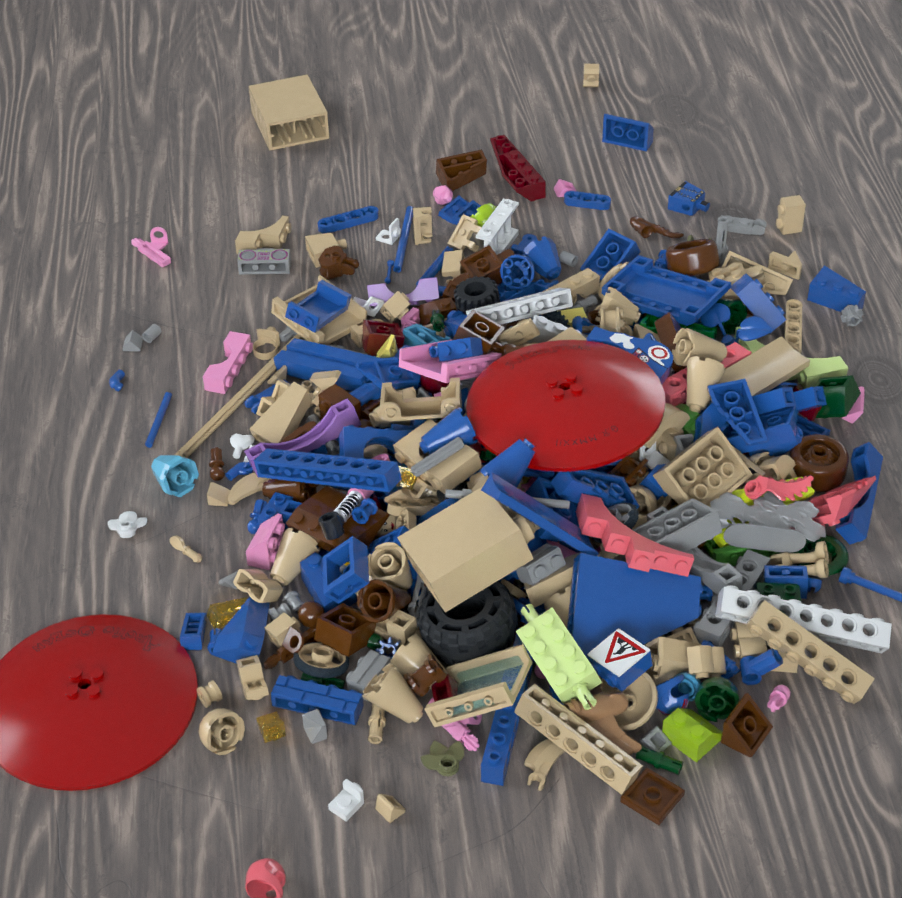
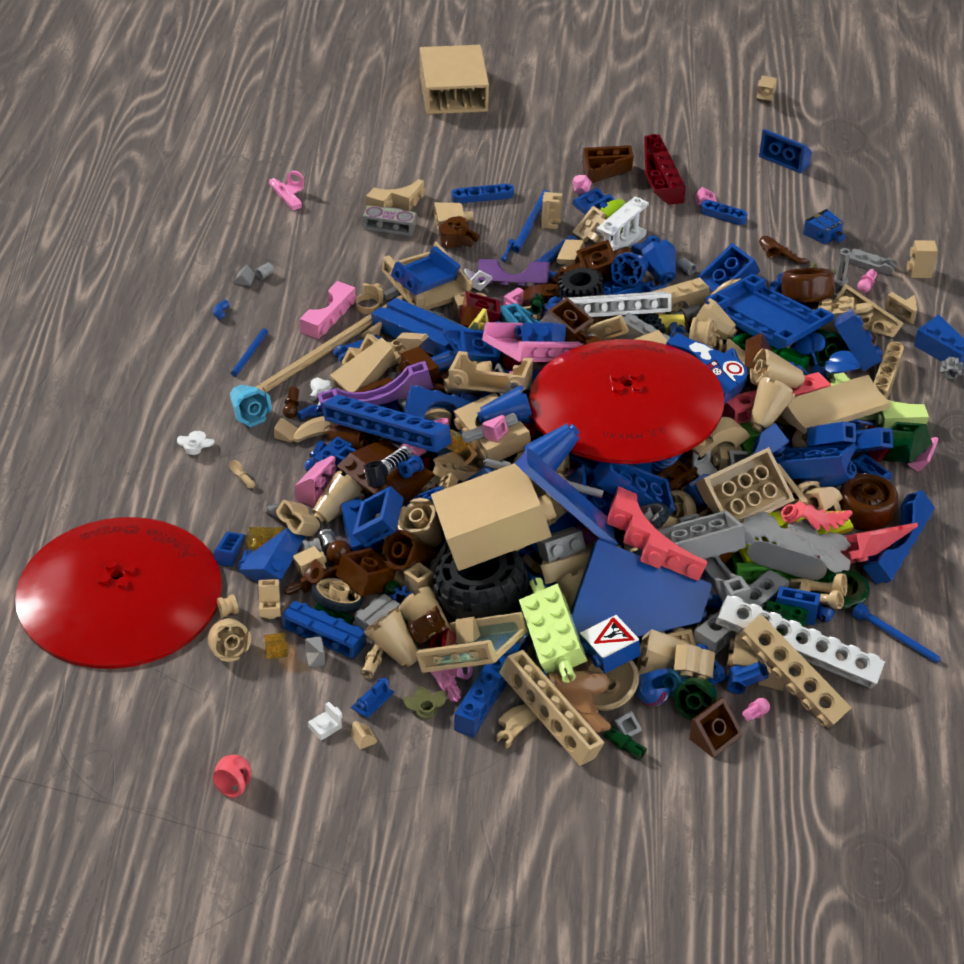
camera: 10 degrees right, 0 degrees up
(389, 764) = (373, 698): none -> blue hinge
(394, 233) = (522, 212): white bracket -> none
(395, 307) = (500, 284): tan brick -> none
(443, 456) = (495, 428): none -> bright pink slope
(467, 673) = (466, 630): none -> tan slope
(652, 796) = (608, 773): reddish brown tile -> none
(691, 733) = (662, 724): lime slope -> none
(738, 408) = (796, 435): blue wedge -> none
(744, 245) = (867, 281): none -> bright pink axle

